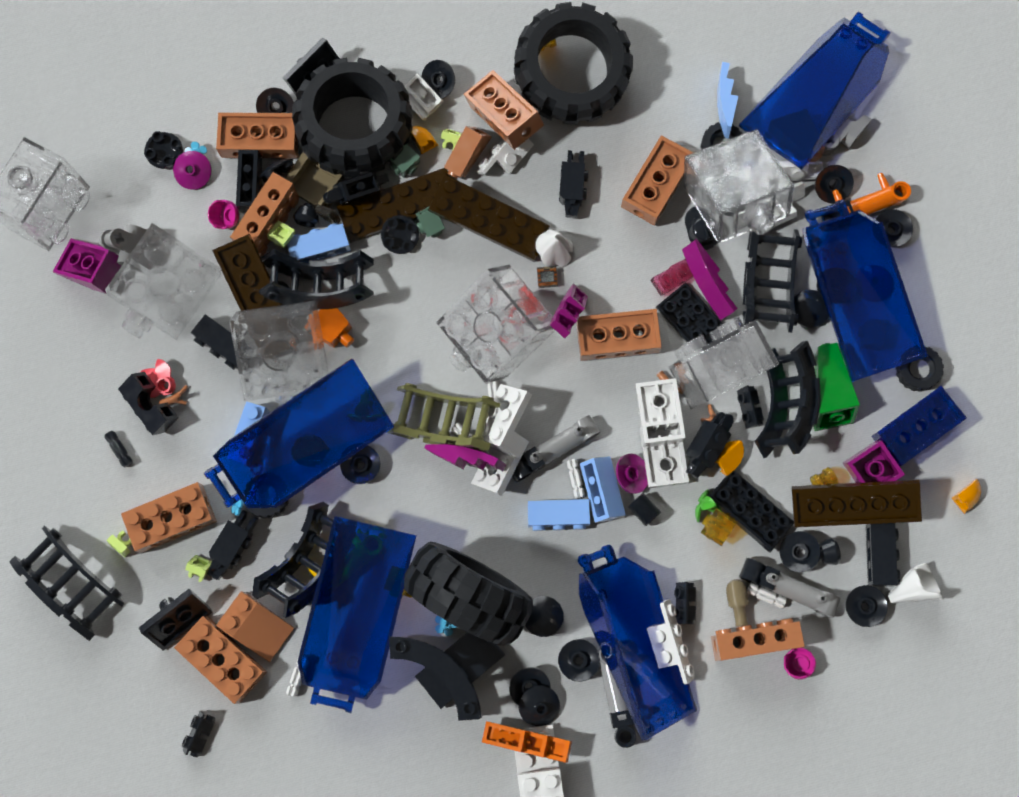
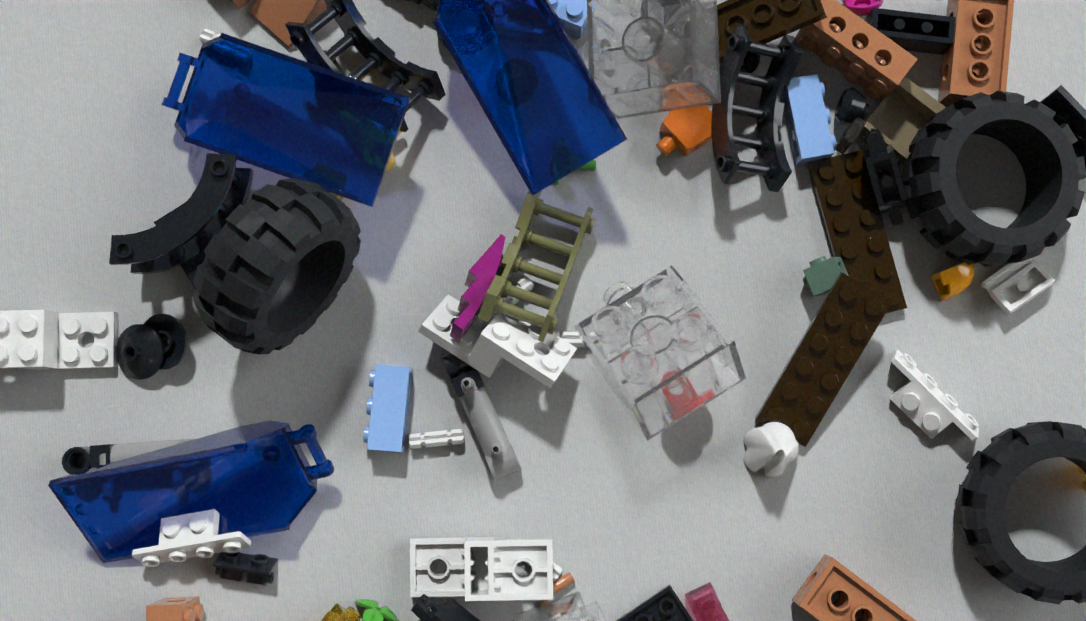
camera: 95 degrees right, 5 degrees up
(266, 99) = (1030, 65): black dish -> none
(280, 165) = (928, 77): black dish -> none
(281, 234) = (825, 66): yellowish green tile -> none
(361, 476) = (476, 147): black dish -> none
(399, 234) = (811, 232): black dish -> none
(406, 162) = (919, 251): sand green brick -> none
(432, 74) = (1050, 302): black dish -> none
(450, 136) = (952, 322): yellowish green tile -> none
(466, 151) = (928, 340): nougat slope -> none
(491, 92) = (1017, 388): nougat brick -> none
(527, 741) = (91, 328): orange slope -> none
(545, 617) = (256, 374): black dish -> none
(547, 277) = (729, 433): tile -> none
(568, 655) = (177, 406): black dish -> none
(569, 310) = (670, 456): magenta slope -> none
(571, 184) = (864, 486): black hinge -> none
(602, 489) = (413, 473): light blue brick -> none
(622, 322) = (647, 537): nougat brick -> none
(631, 473) = (431, 517): magenta dish -> none
(644, 509) = (379, 528): black piece -> none

